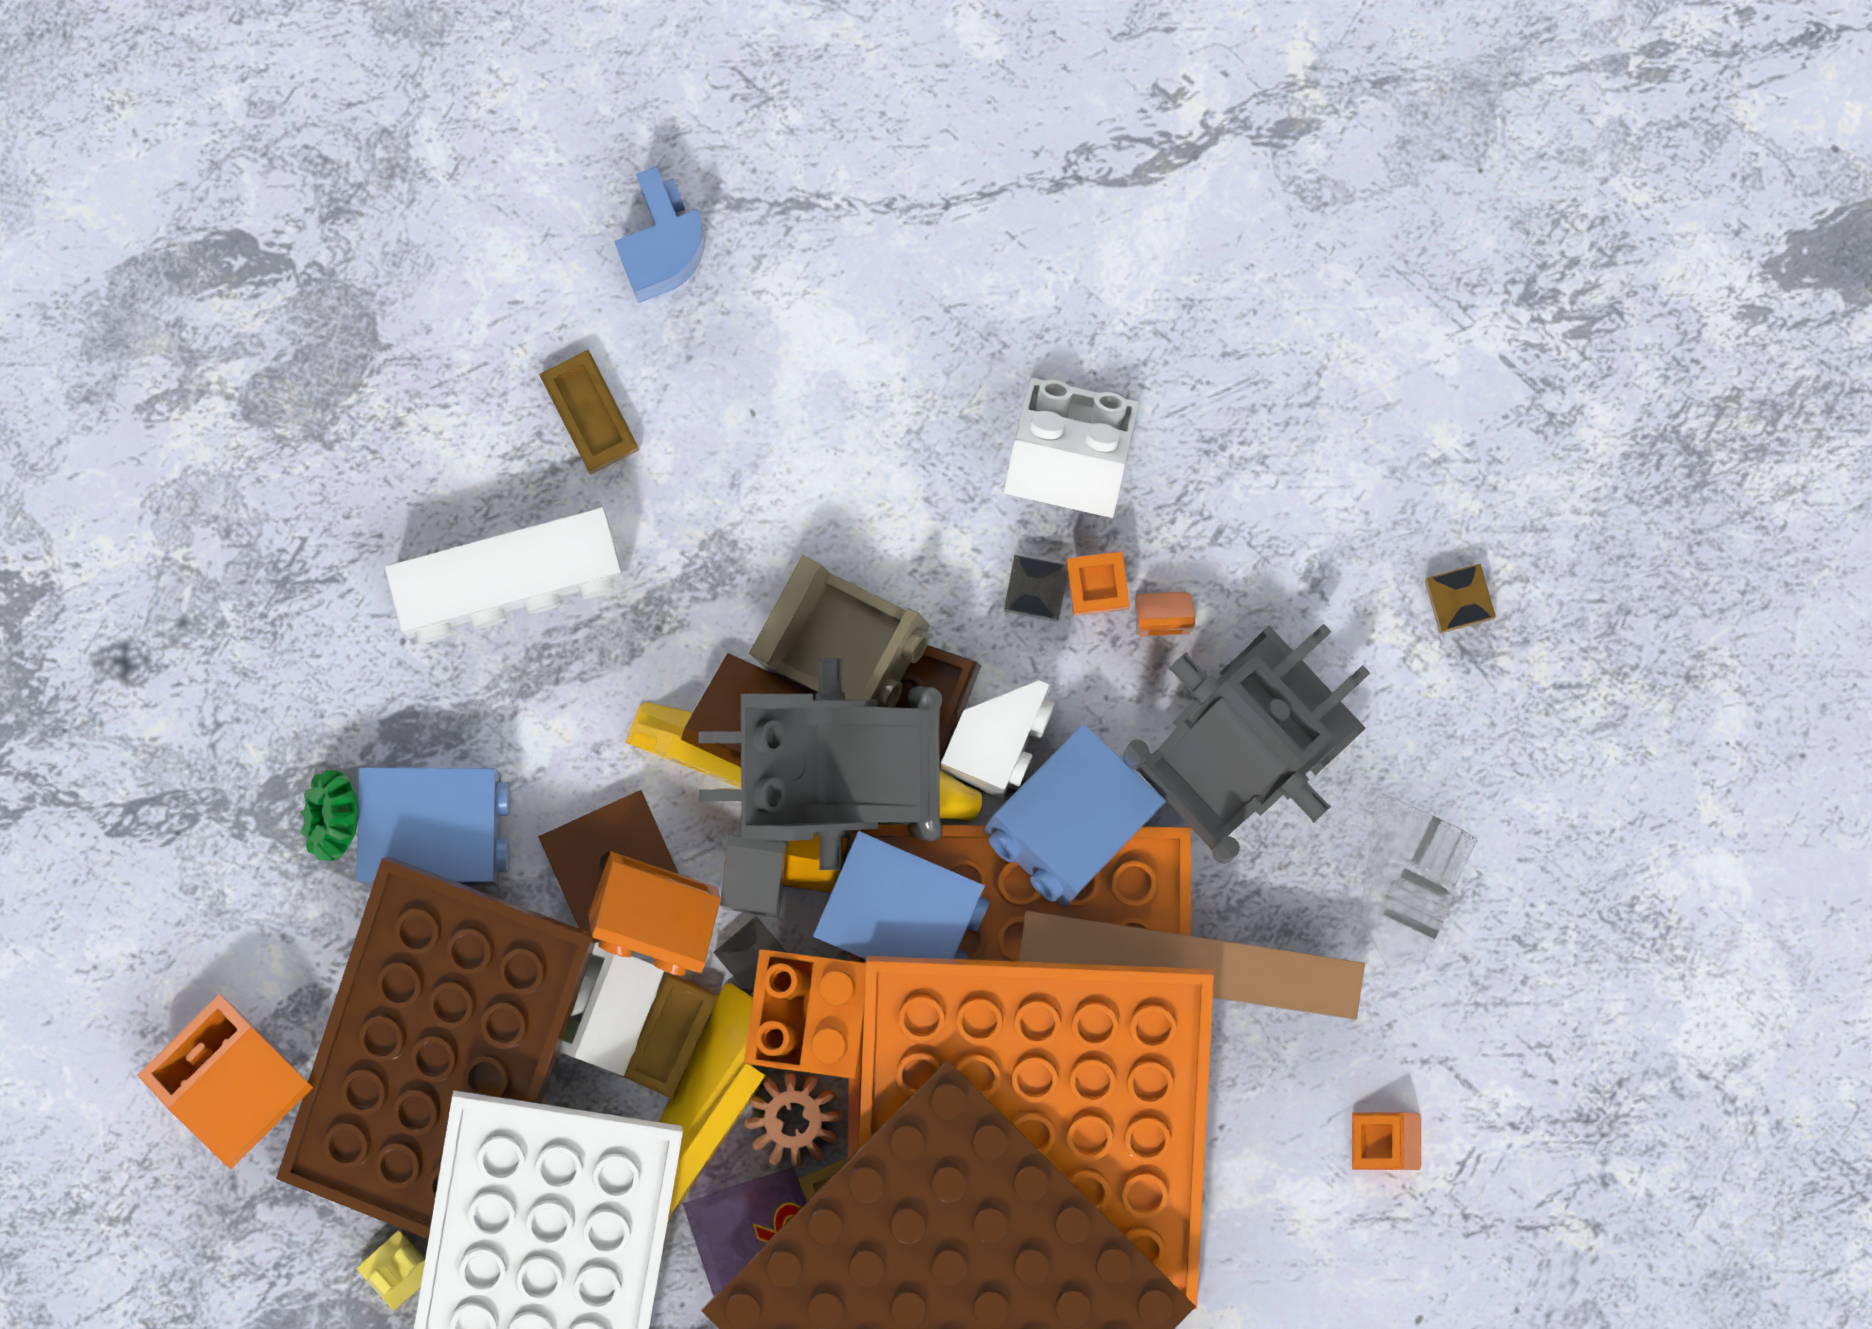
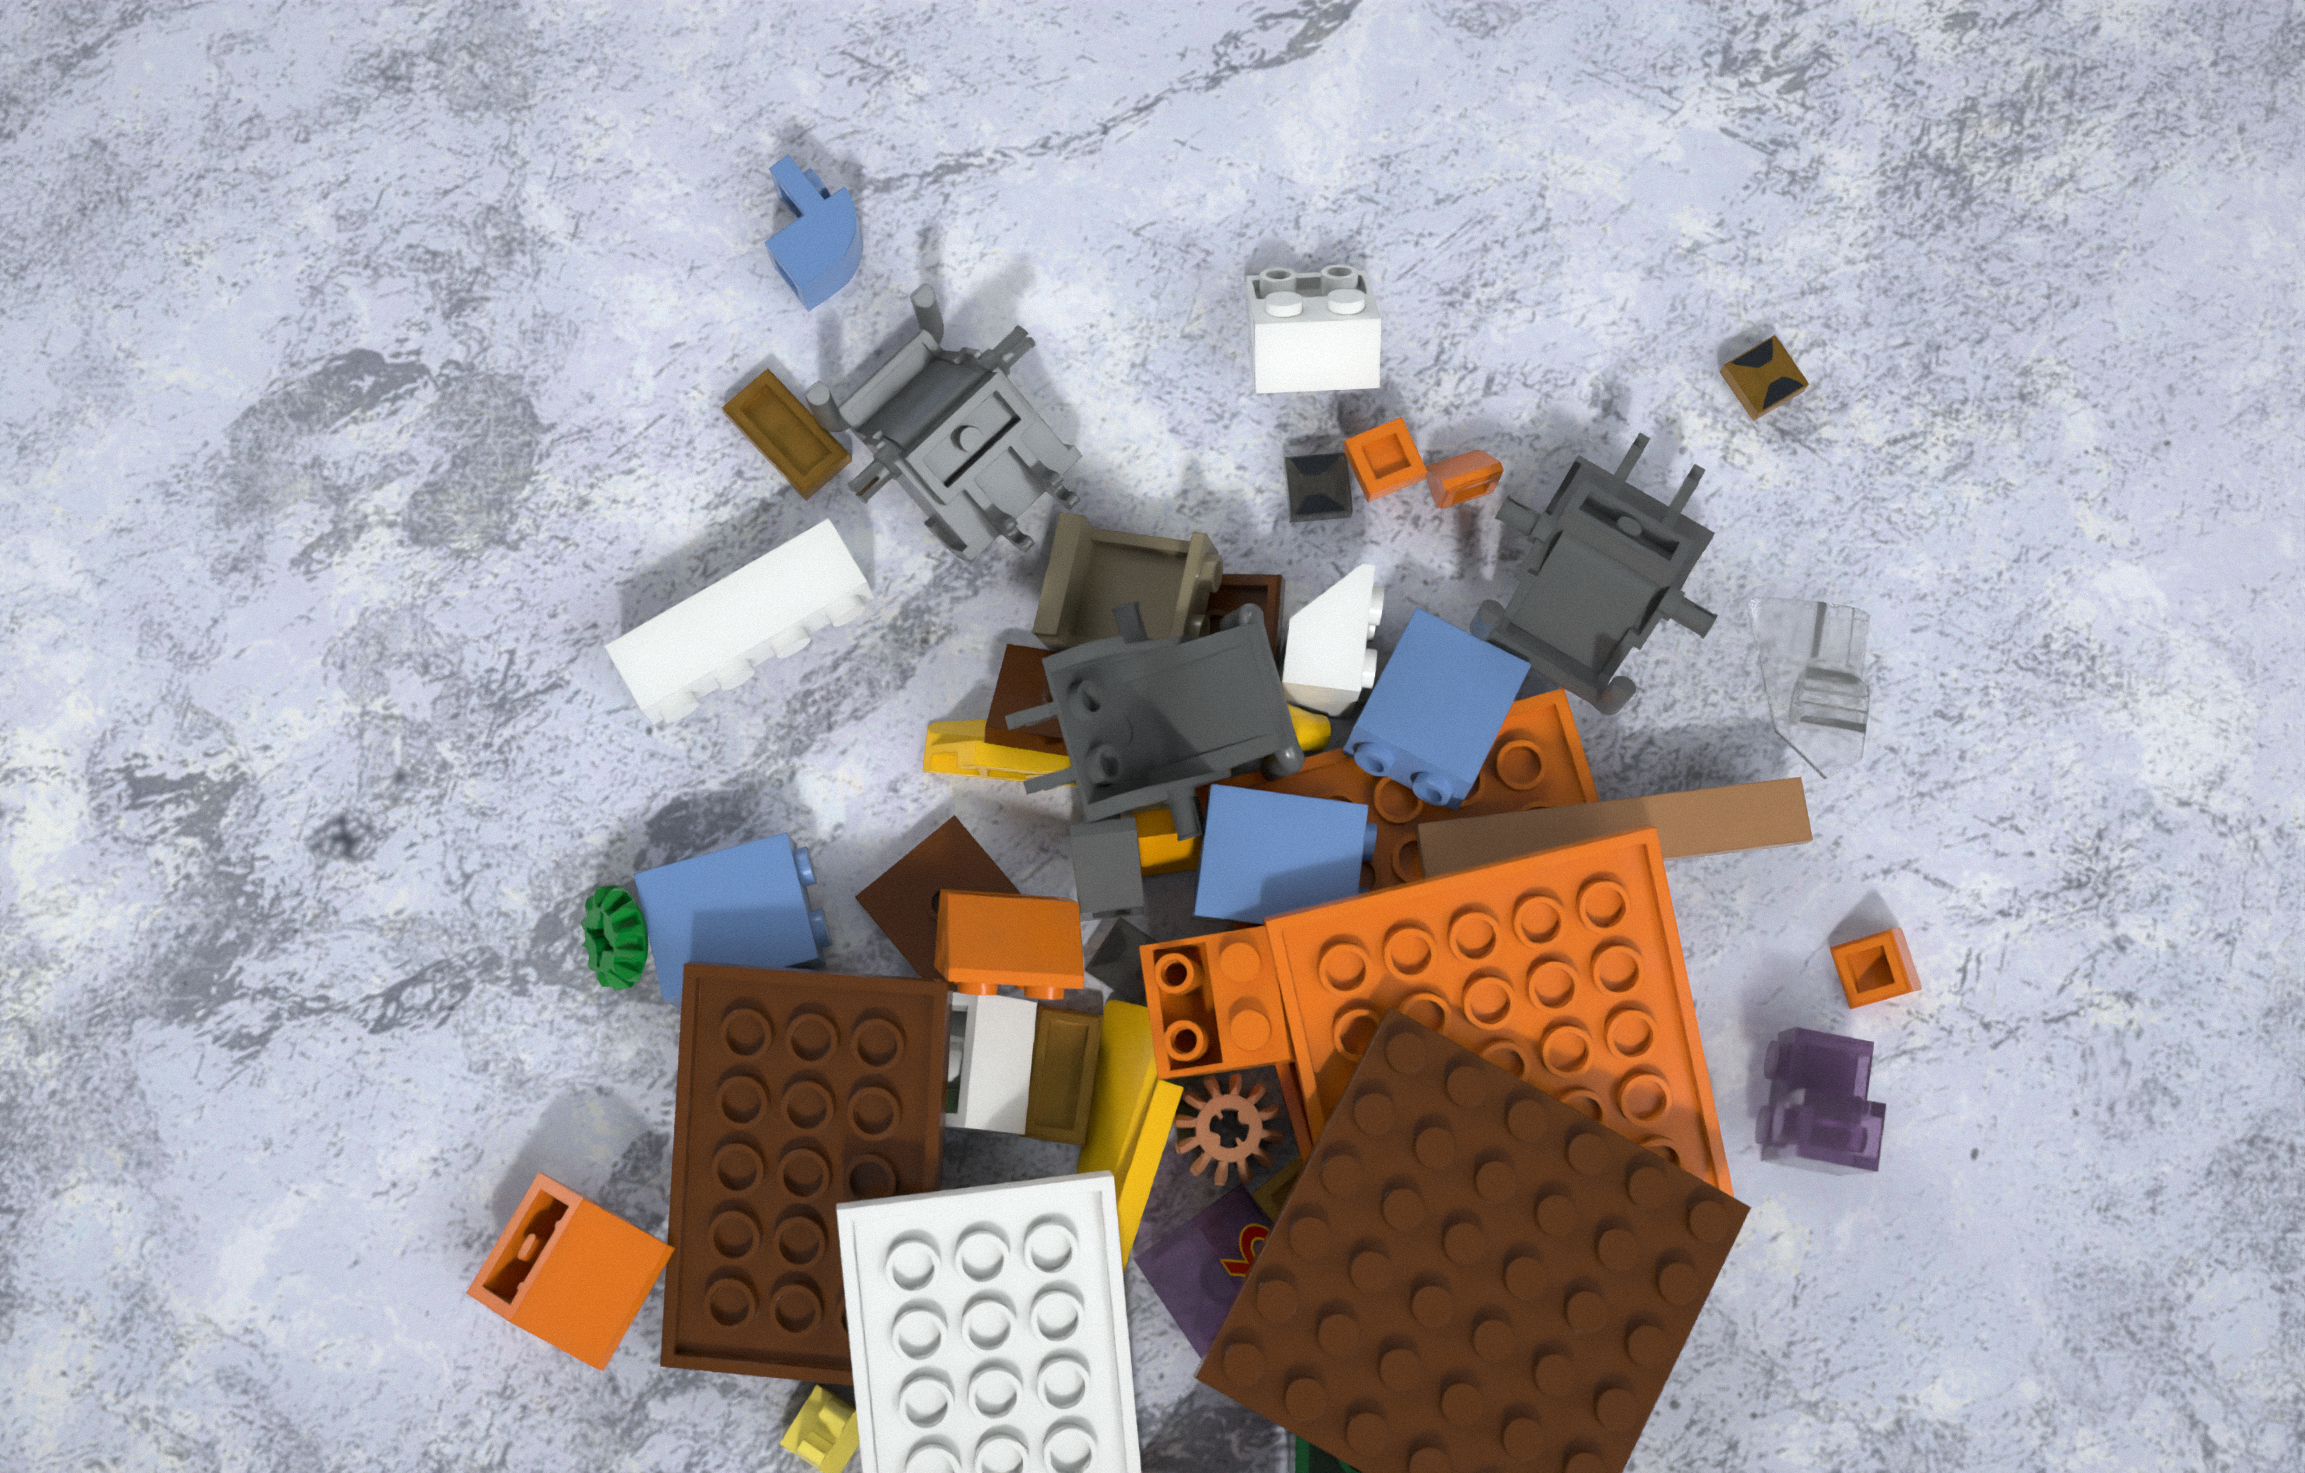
camera: 20 degrees left, 5 degrees down
(730, 459) = (953, 435): none -> piece
(1293, 1238) = (1820, 1104): none -> clear purple brick

